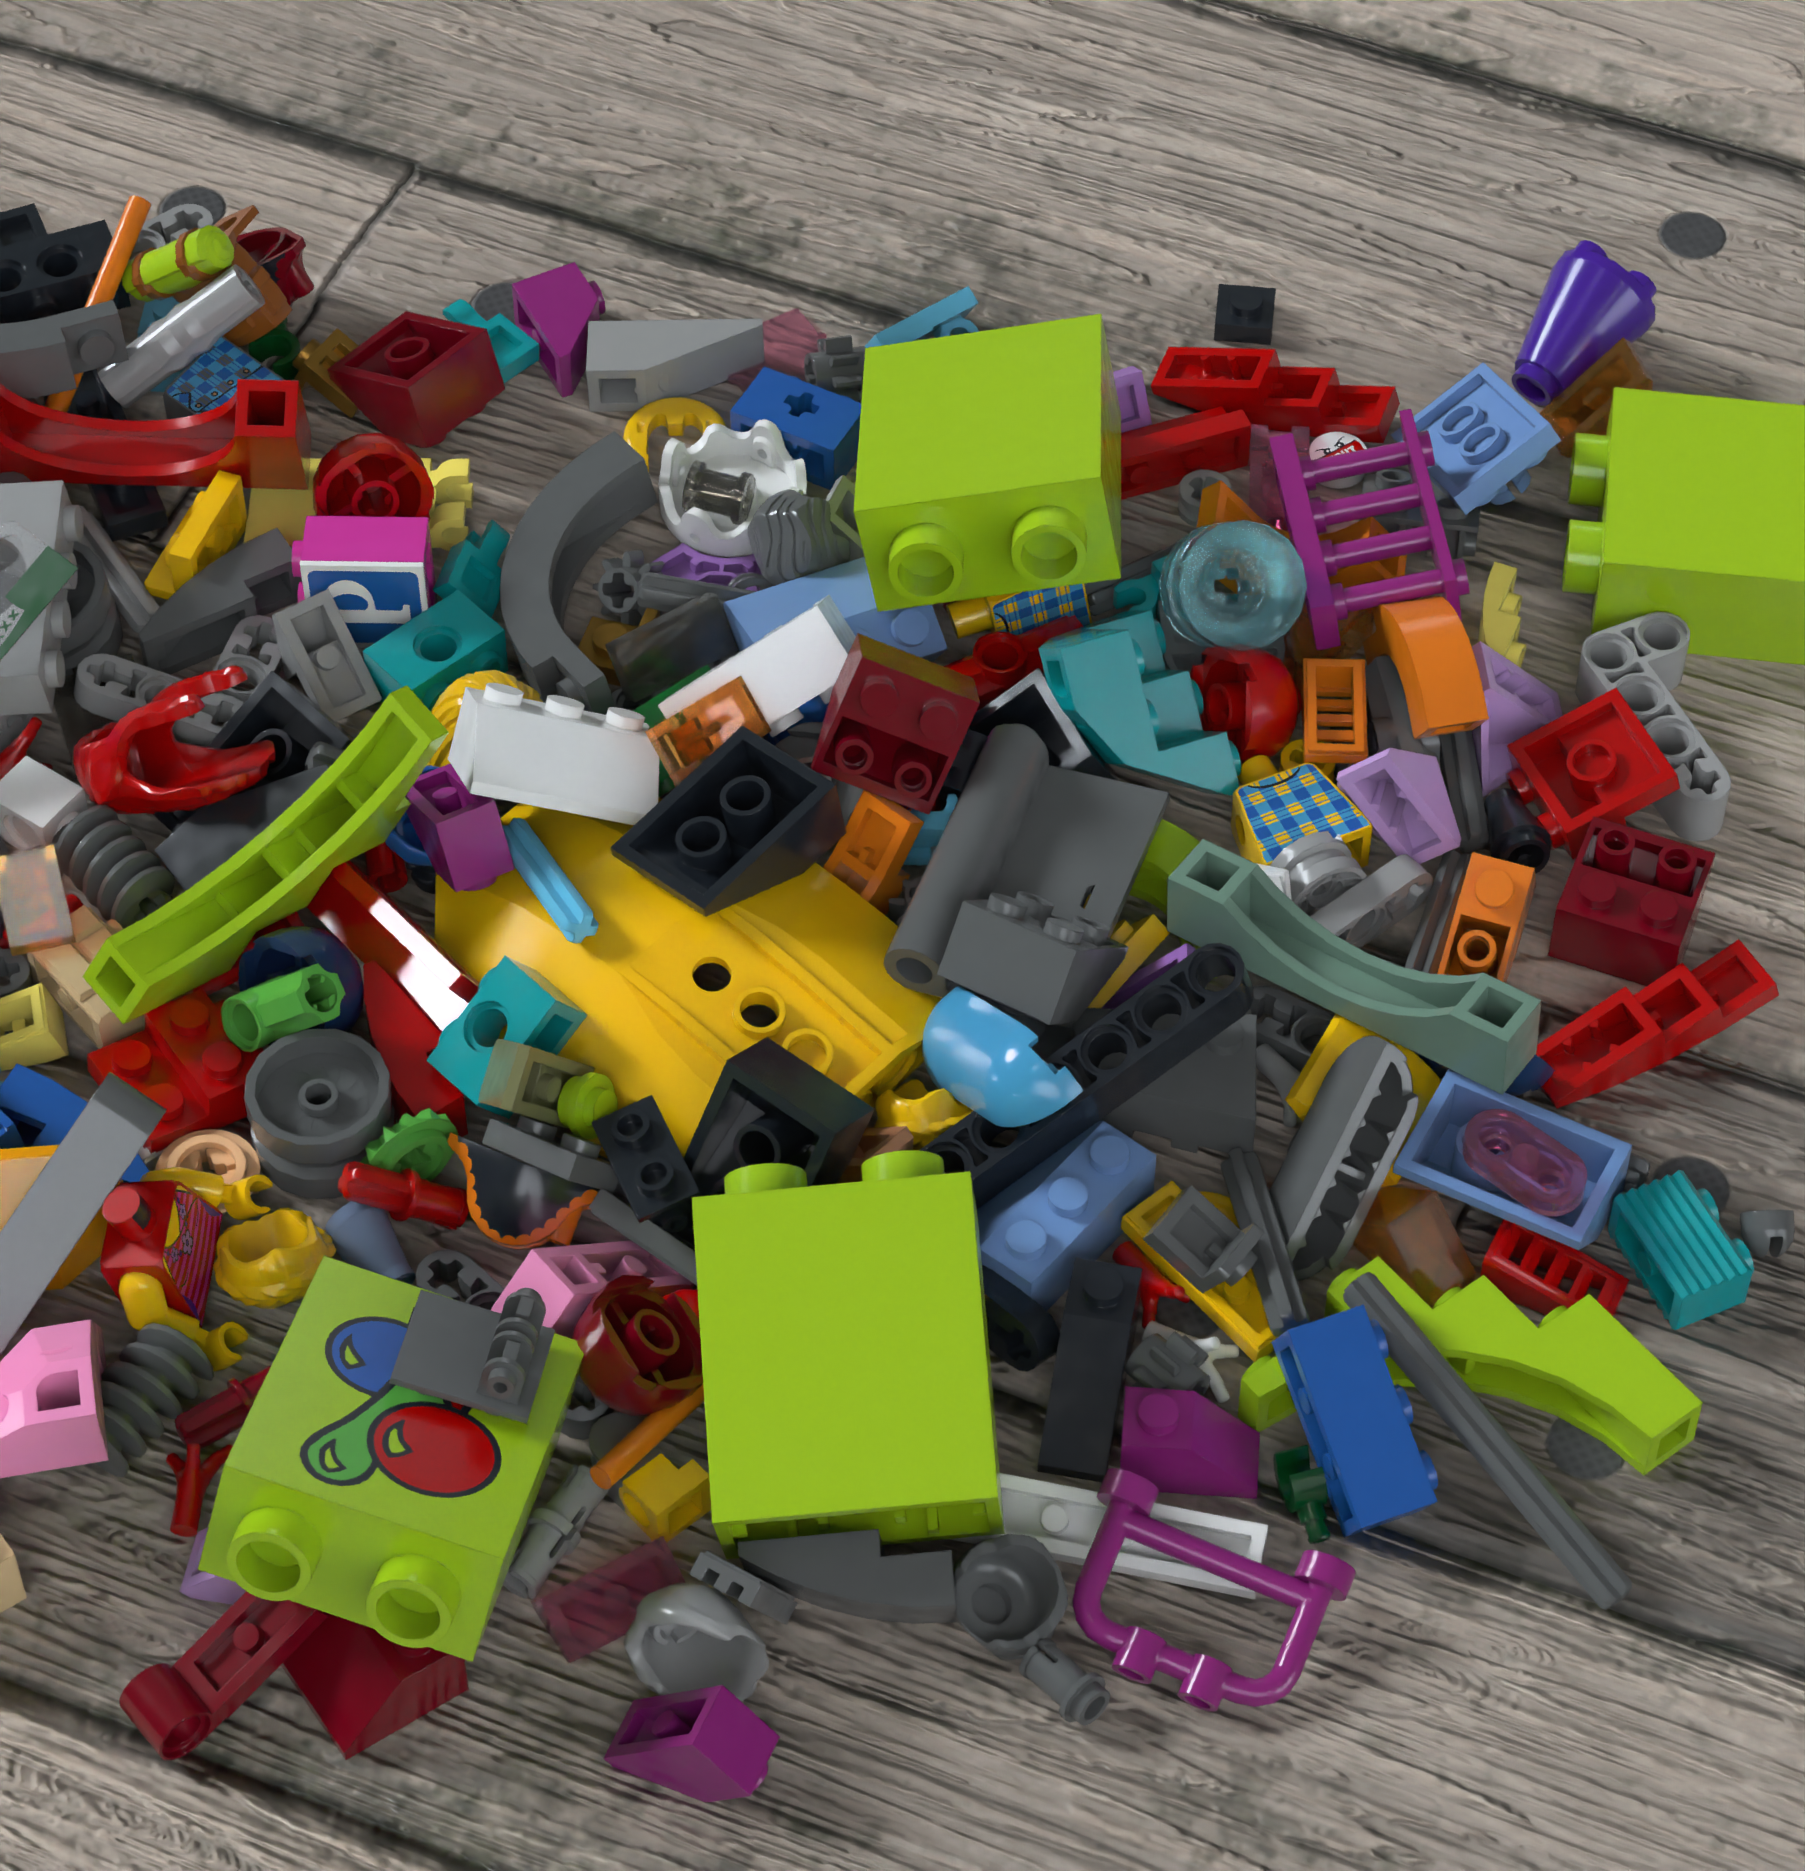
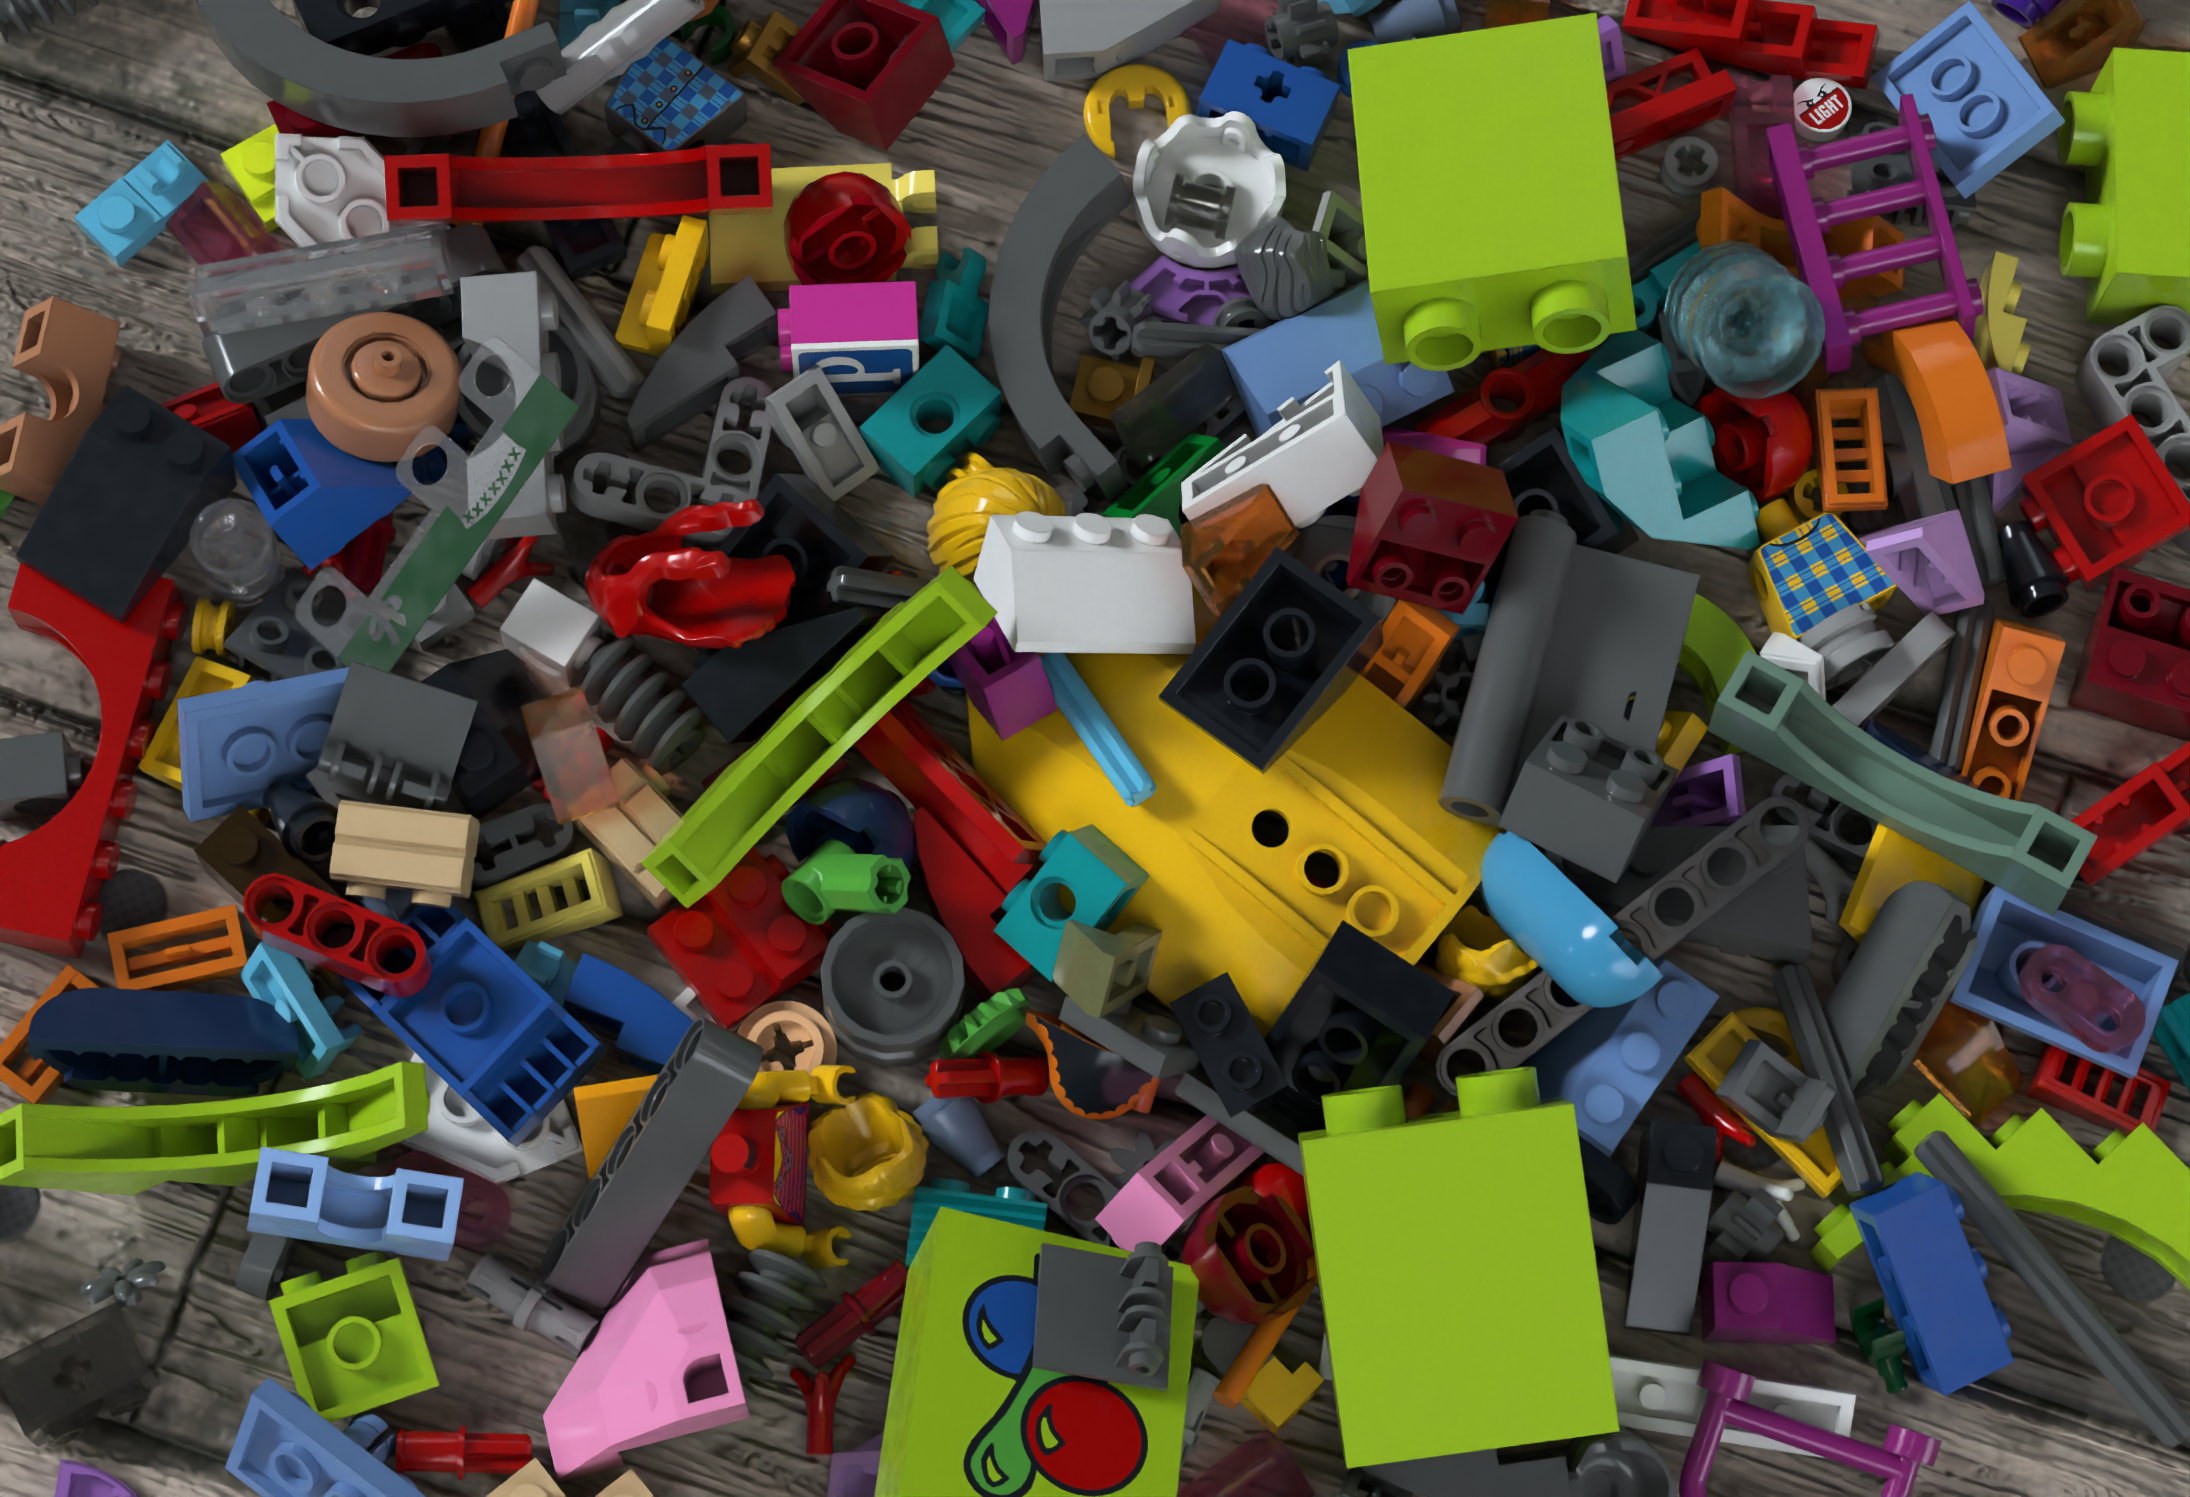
camera: 10 degrees left, 20 degrees up
(584, 1101) = (1161, 977): lime plate -> none

